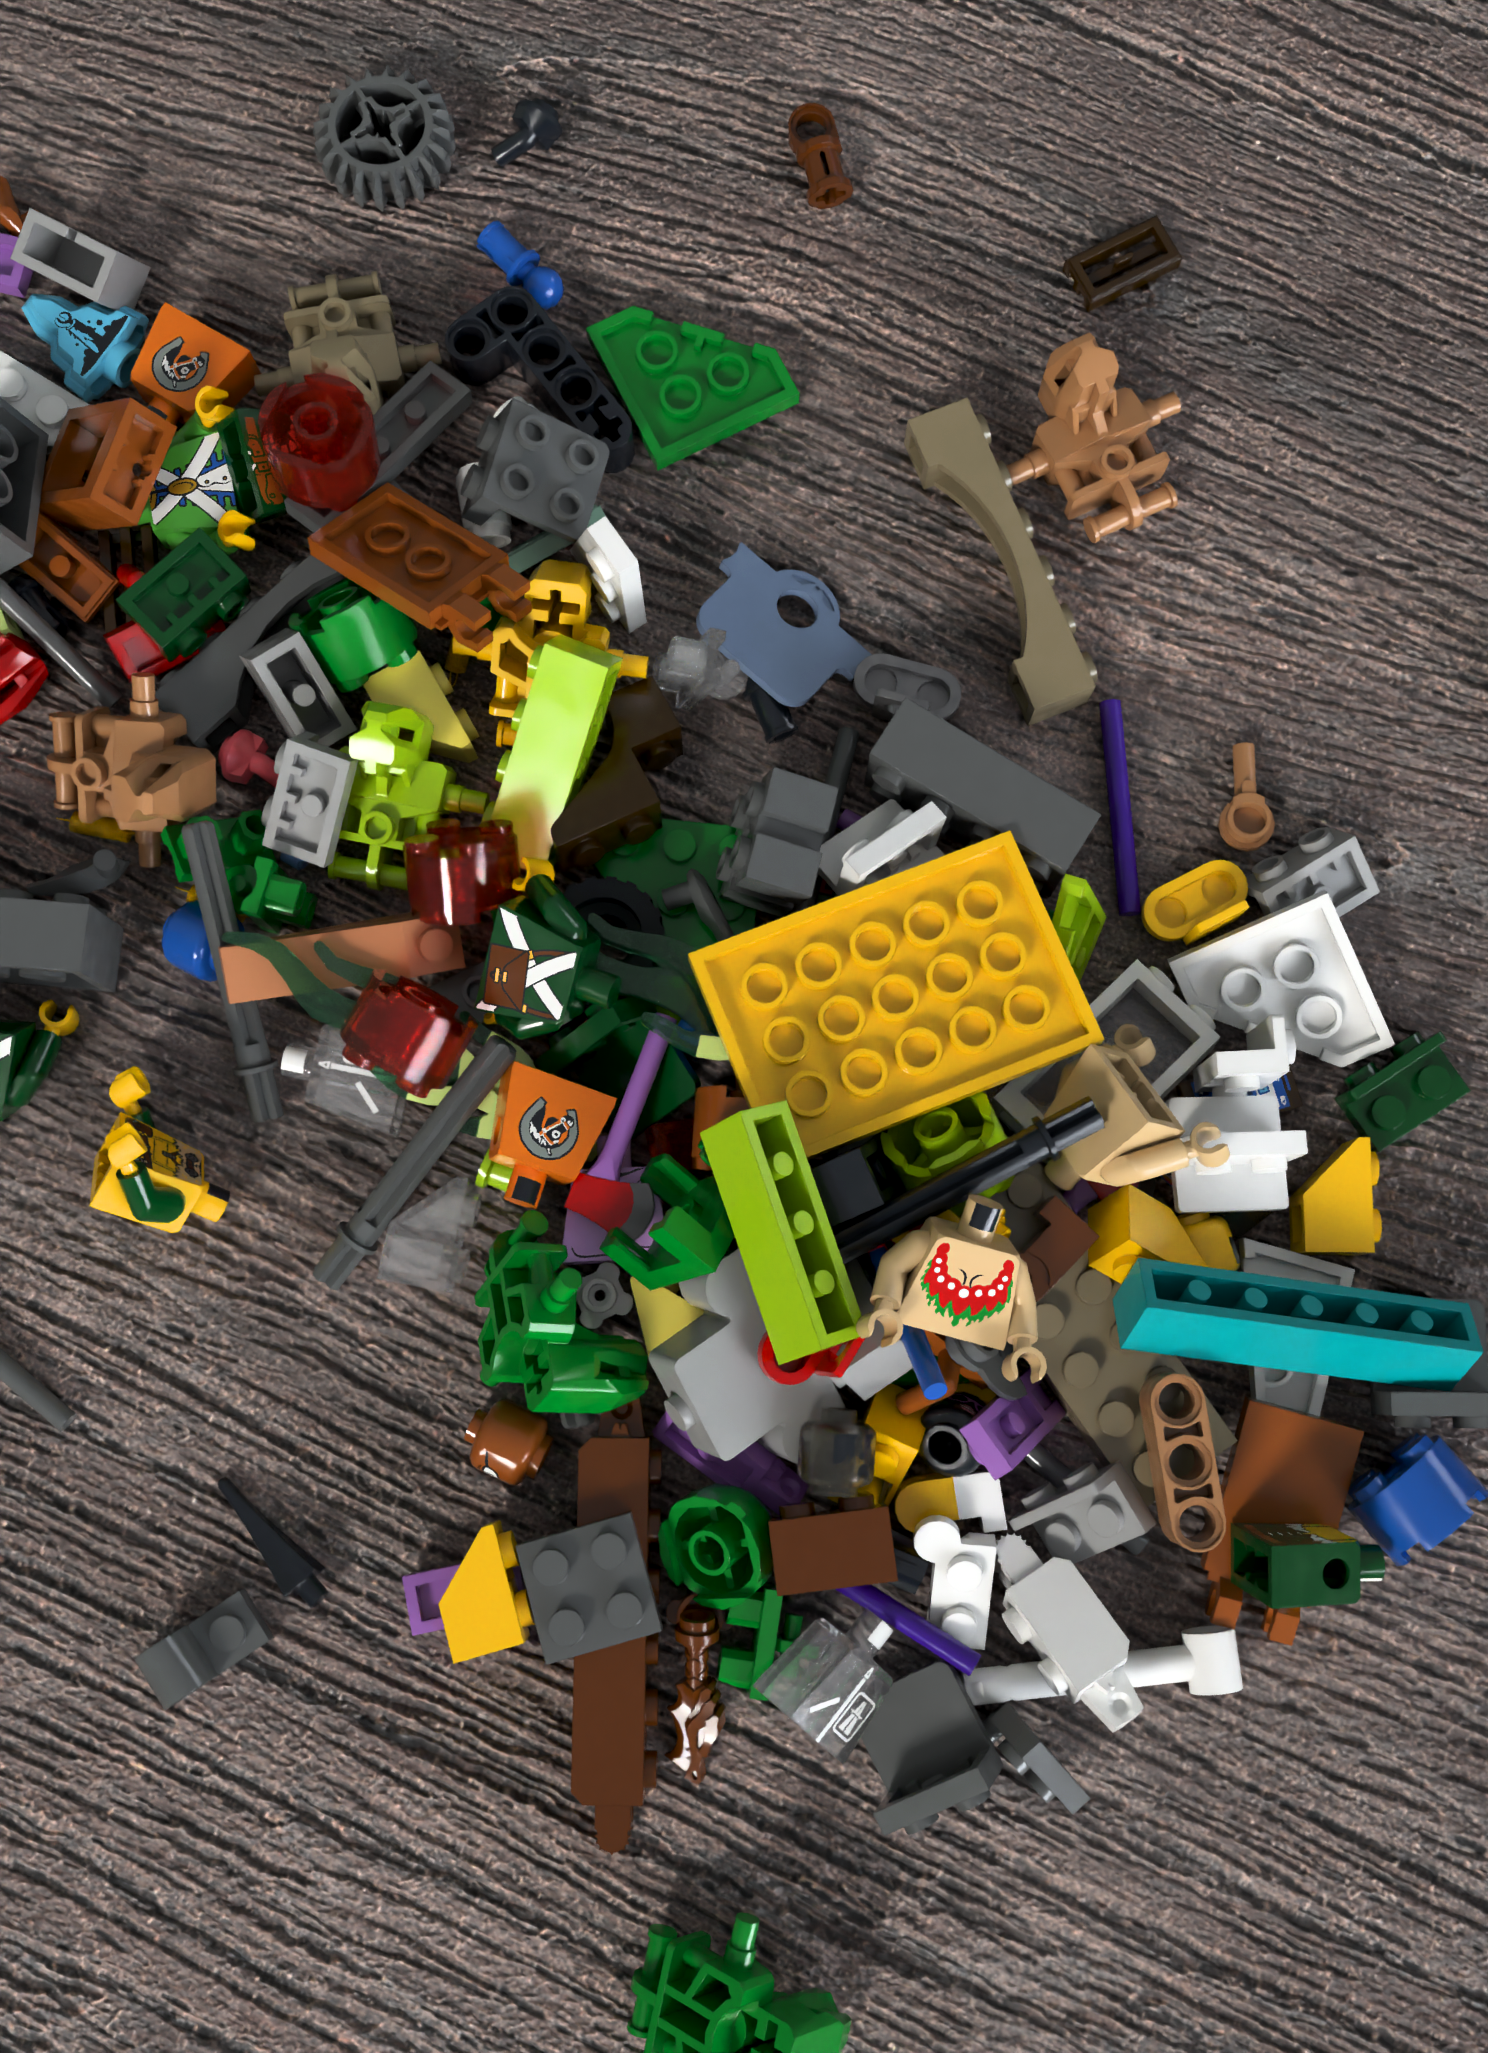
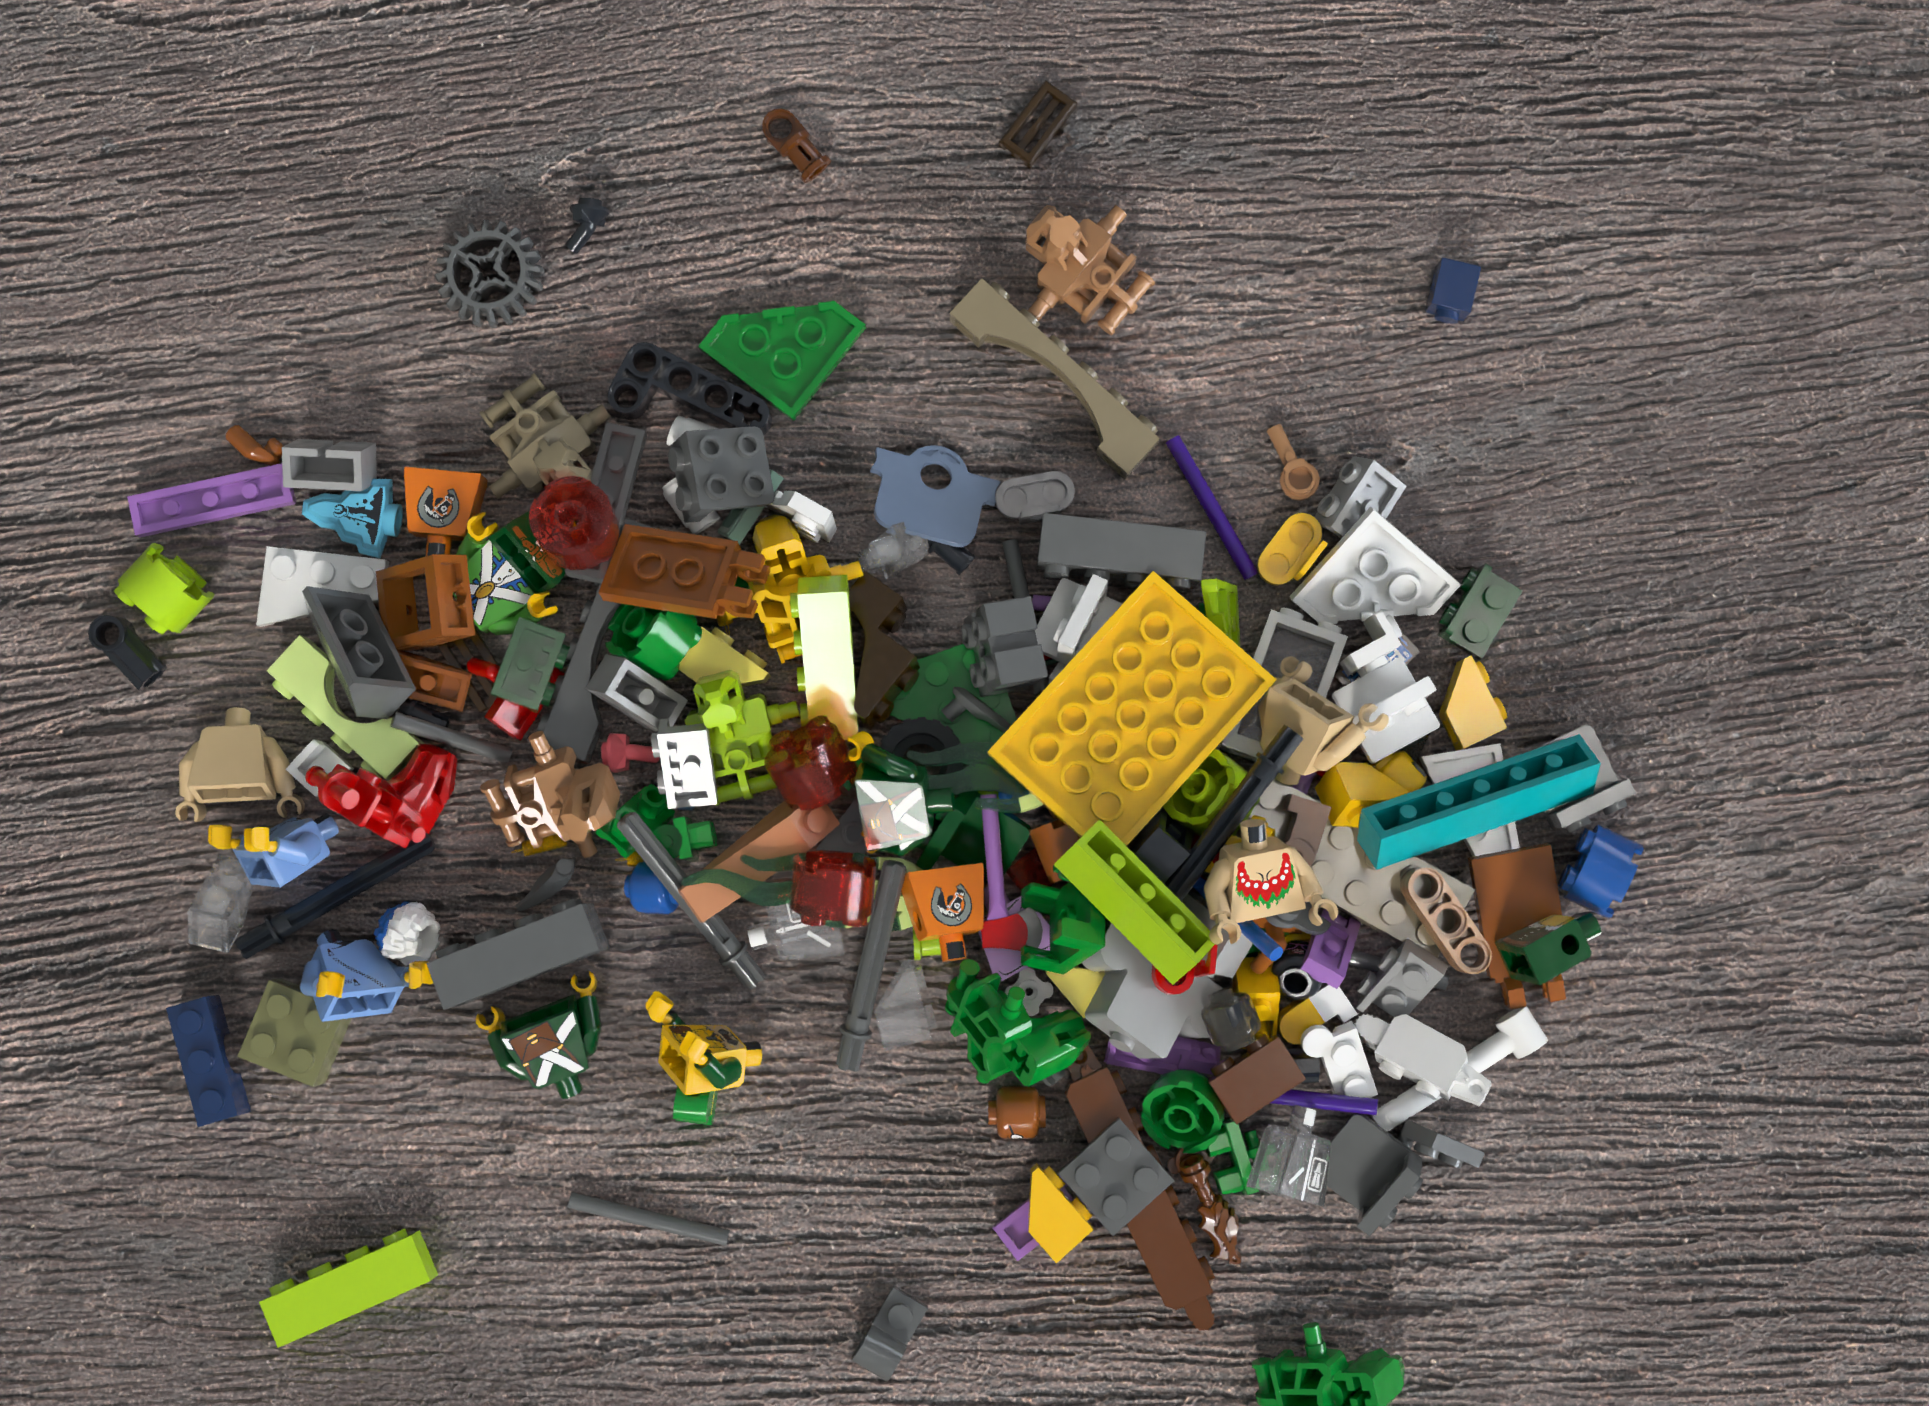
camera: 30 degrees left, 5 degrees up
(108, 1234) = (695, 1108): none -> green leg
(289, 1563) = (915, 1255): black piece -> none
(521, 265) = (649, 328): blue pin -> none

